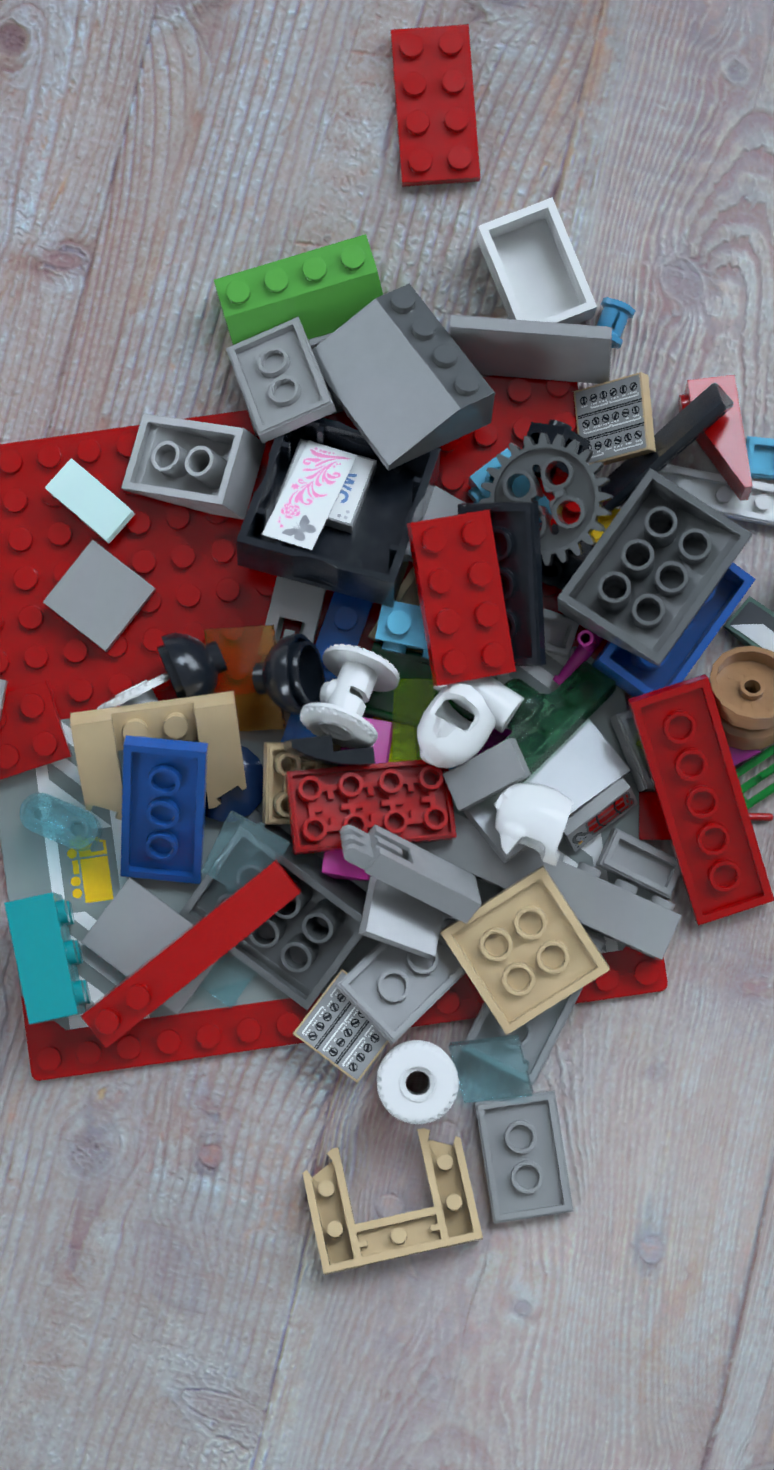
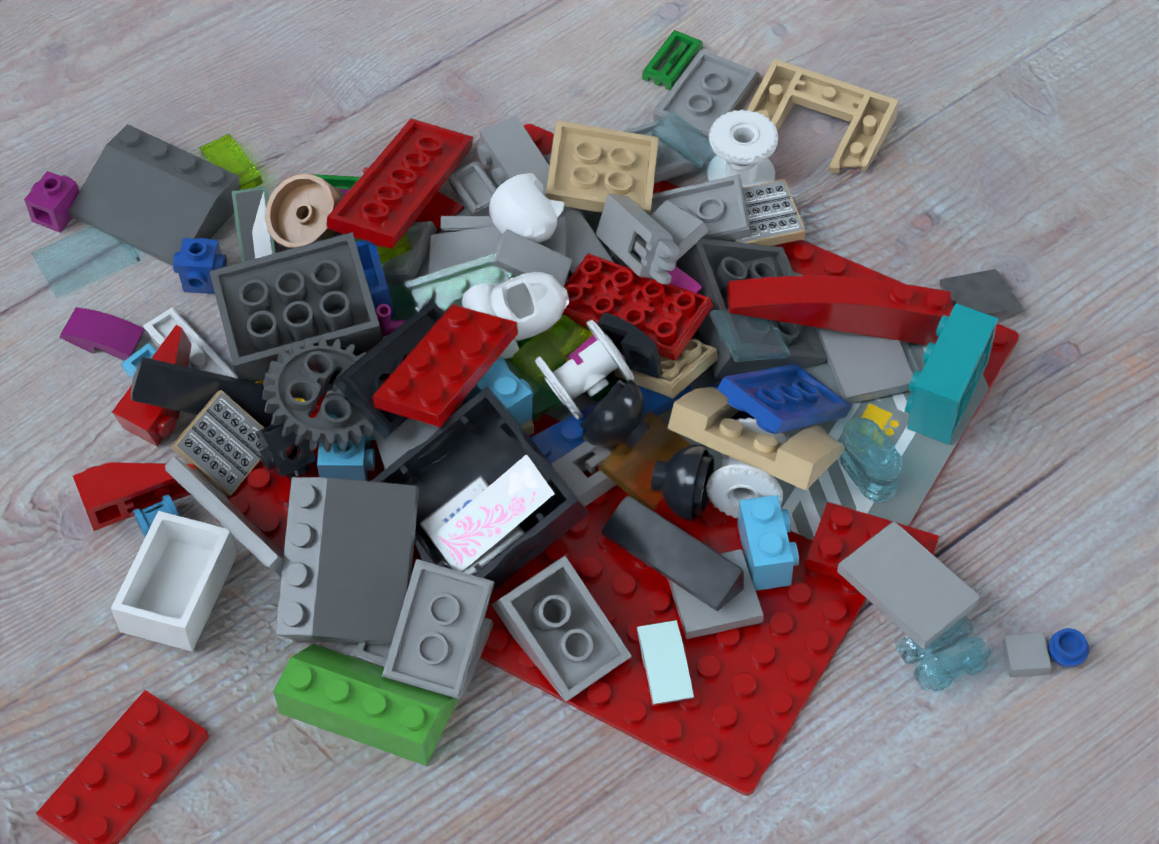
camera: 135 degrees left, 30 degrees down
(86, 665) = (766, 542): none -> medium azure brick
(94, 1095) = (982, 292): none -> flat silver piece
(153, 594) = (674, 553): none -> black slope
(587, 1145) = (663, 76): none -> green tile
(664, 323) = (118, 488): none -> red slope

